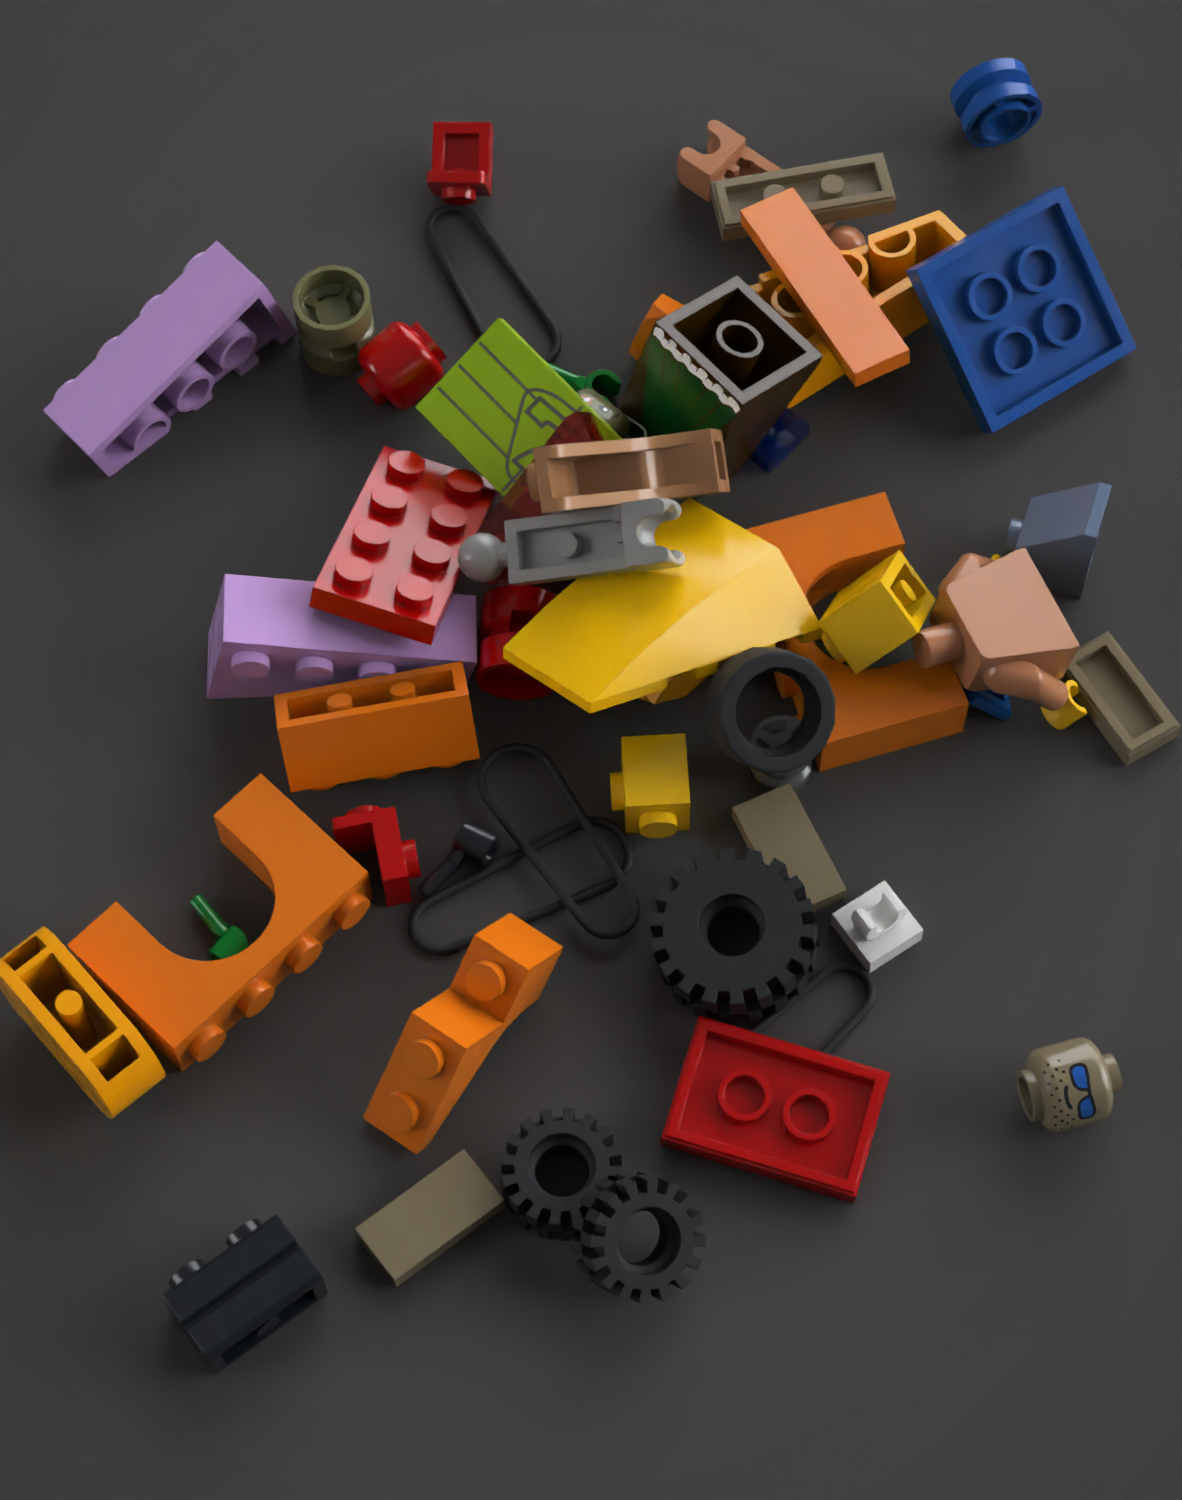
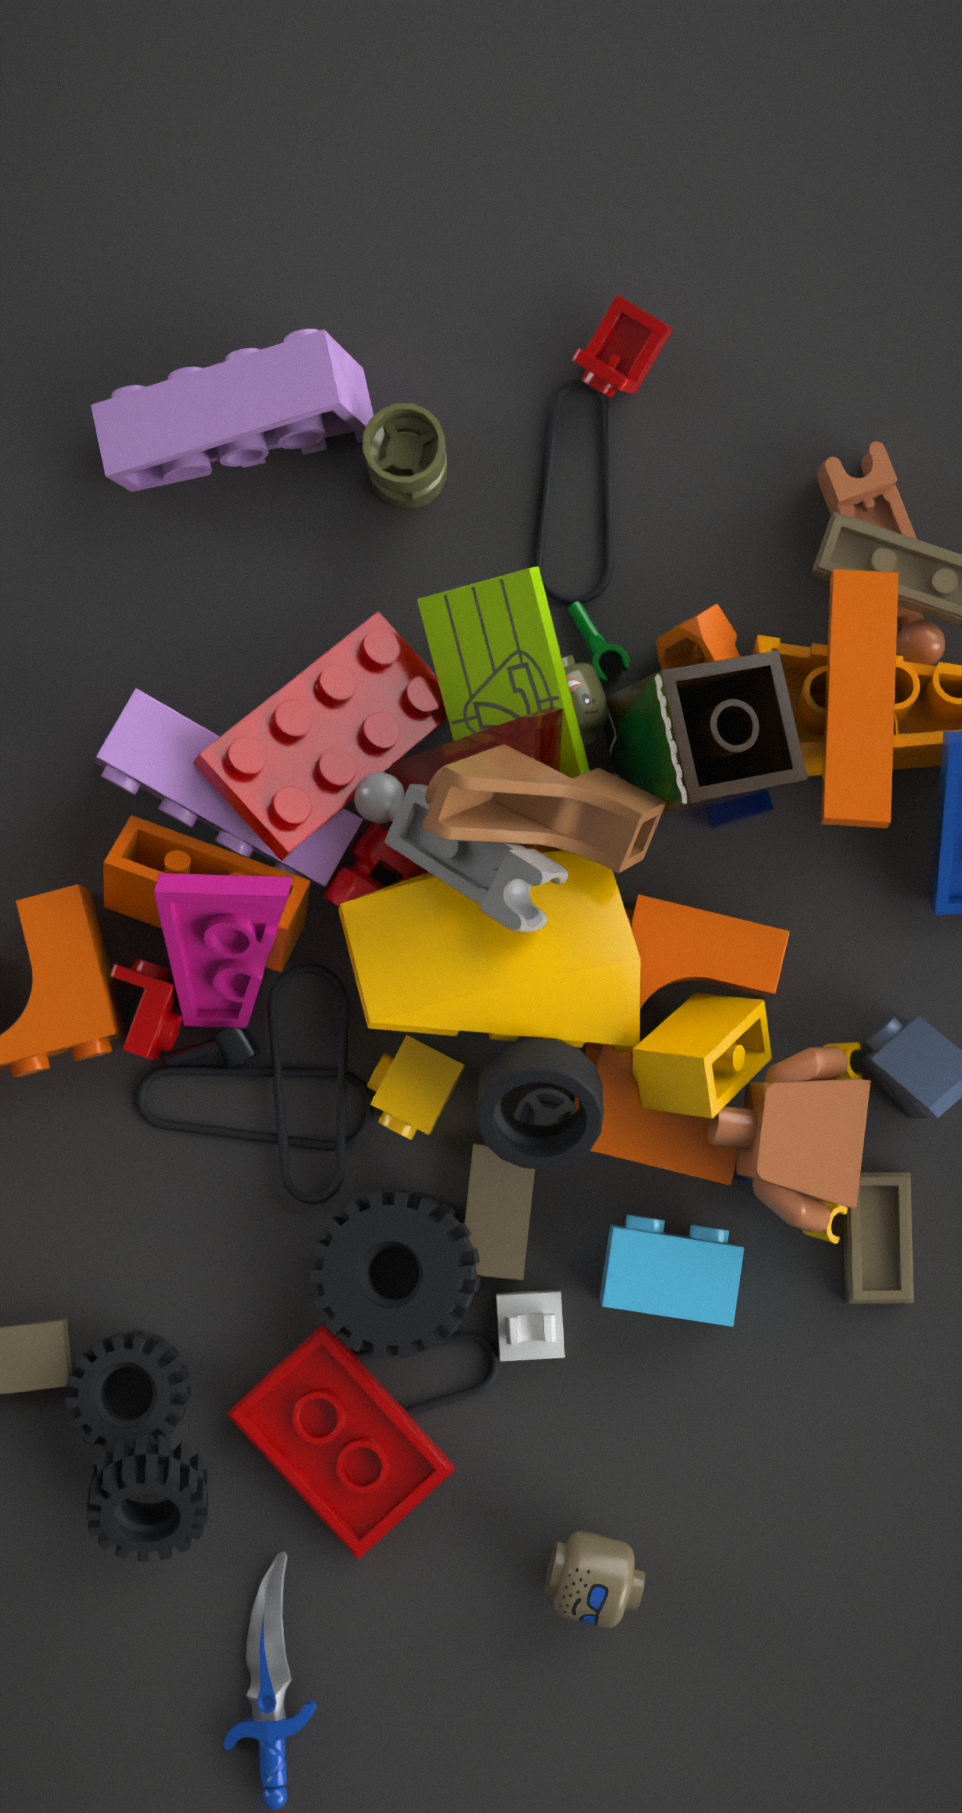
camera: 35 degrees right, 20 degrees up
(400, 365) = (441, 535): red head -> none
(417, 737) = (219, 941): none -> dark pink wing
(458, 1028) = (120, 1216): orange arch -> none
(847, 1357) = (268, 1687): none -> piece
(966, 810) = (671, 1272): none -> medium azure brick

